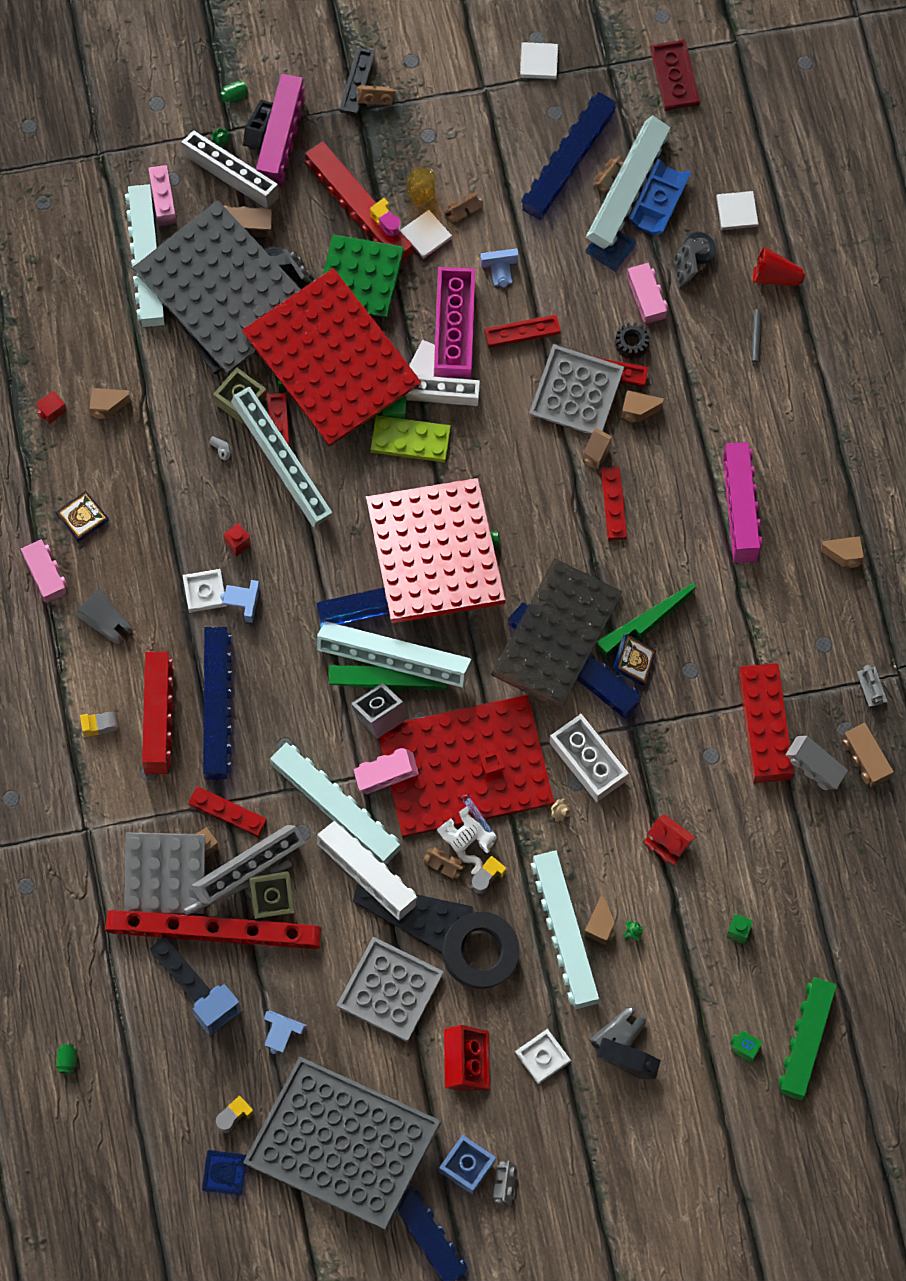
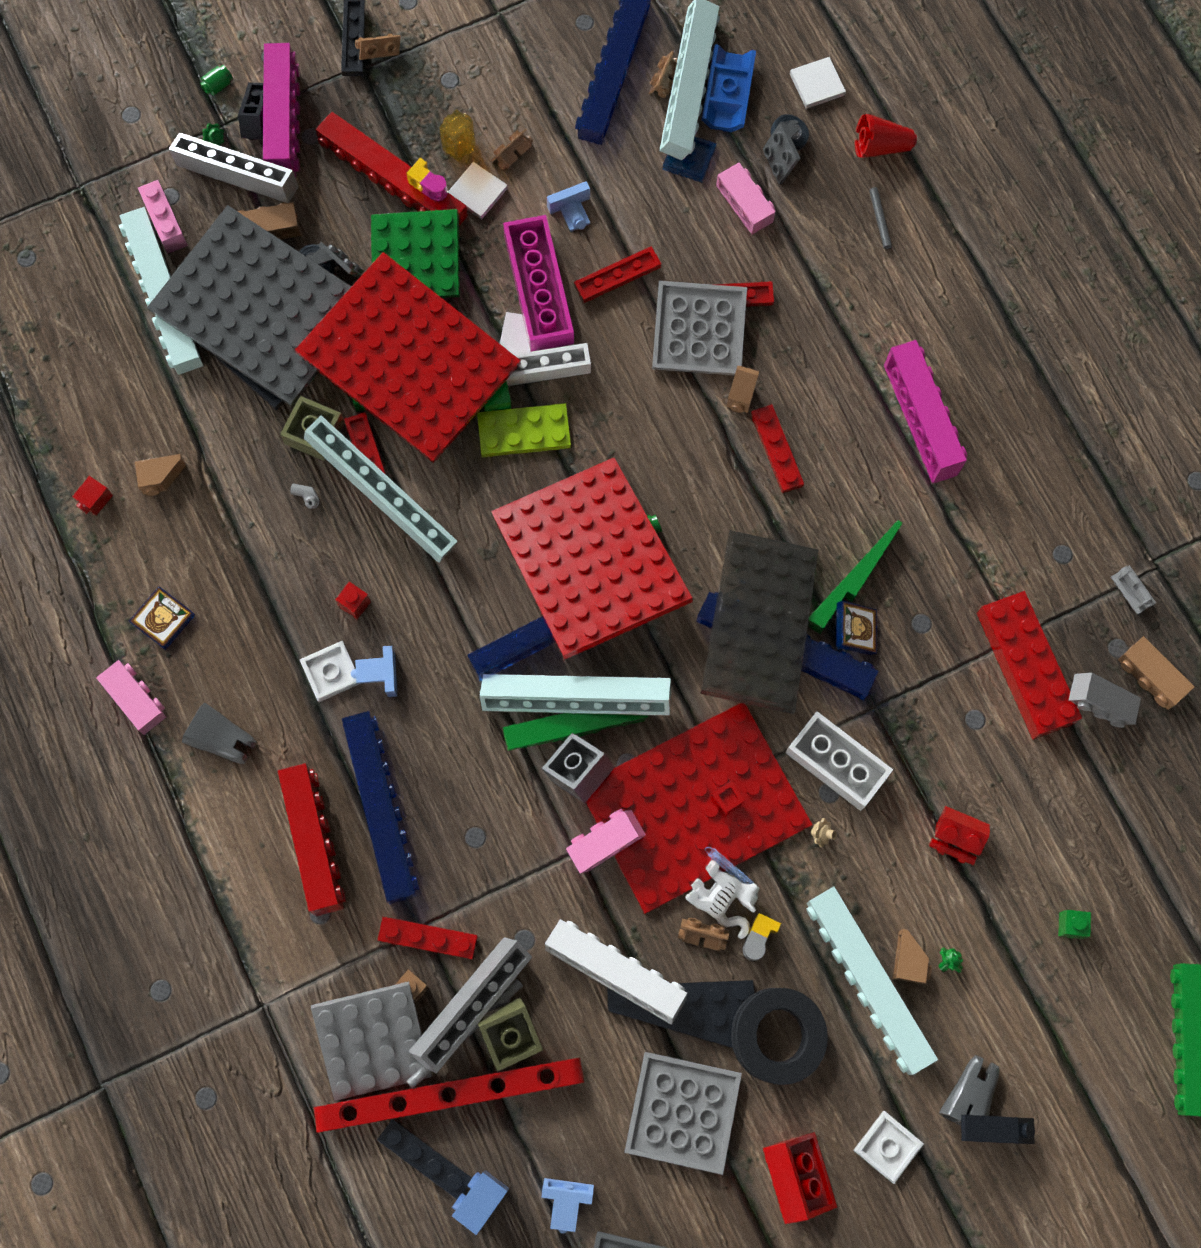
camera: 15 degrees left, 5 degrees up
(98, 723) = (243, 869): leg -> none
(334, 803) = (554, 895): light aqua brick -> none
(636, 331) = (744, 267): black tyre -> none
(640, 406) = (775, 328): medium nougat slope -> none
(745, 1046) = (1125, 1069): green brick -> none
(844, 551) = (1055, 439): medium nougat slope -> none

